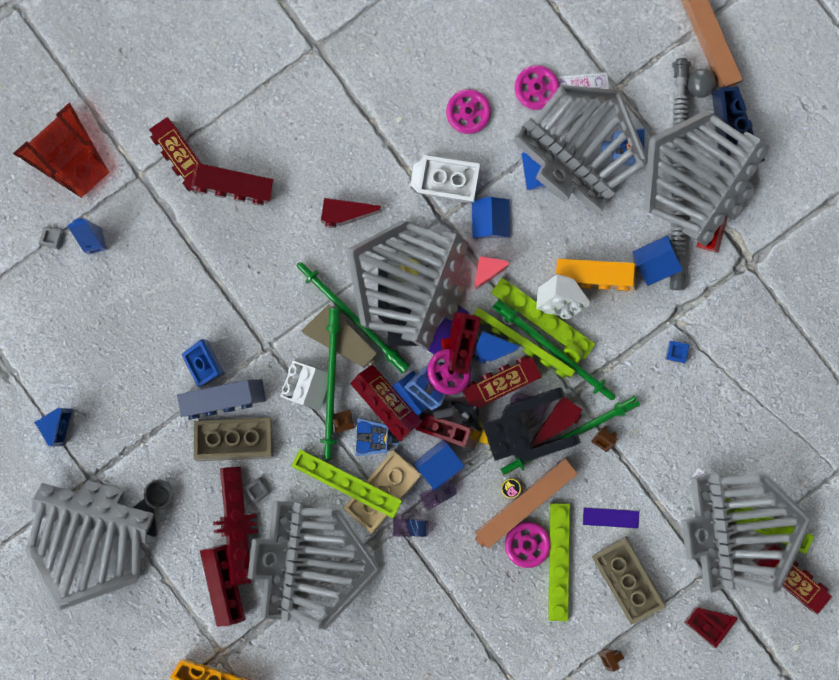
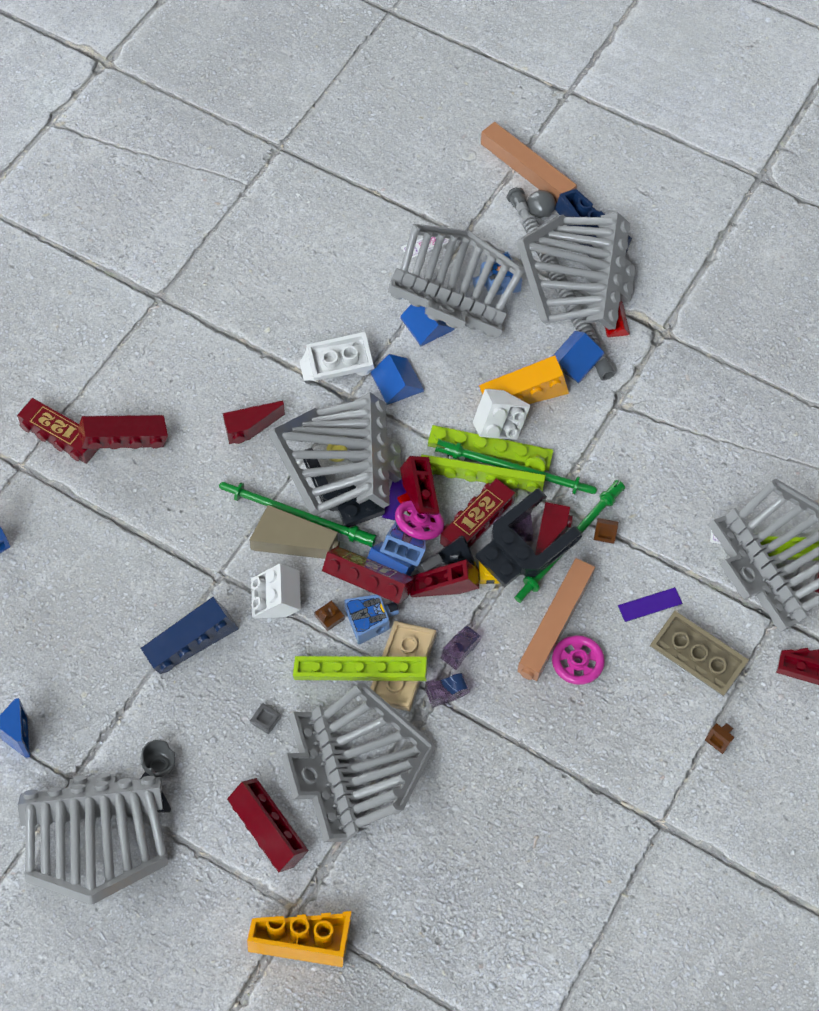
camera: 30 degrees left, 25 degrees down
(202, 363) = (155, 610): blue slope -> none
(233, 439) = (219, 676): dark tan slope -> none
(235, 525) = (257, 757): dark red hinge -> none
(333, 328) = (283, 520): green bar -> none
(439, 465) = (450, 612): blue slope -> none
(471, 127) = (341, 311): dark pink plate -> none
(487, 269) = (416, 417): coral slope -> none
(492, 348) = (455, 484): blue slope -> none
(510, 488) = (534, 613): tile -> none
(523, 78) = (387, 245): dark pink plate -> none
(558, 562) = (619, 666): lime plate -> none
(677, 352) = (636, 428): blue plate -> none

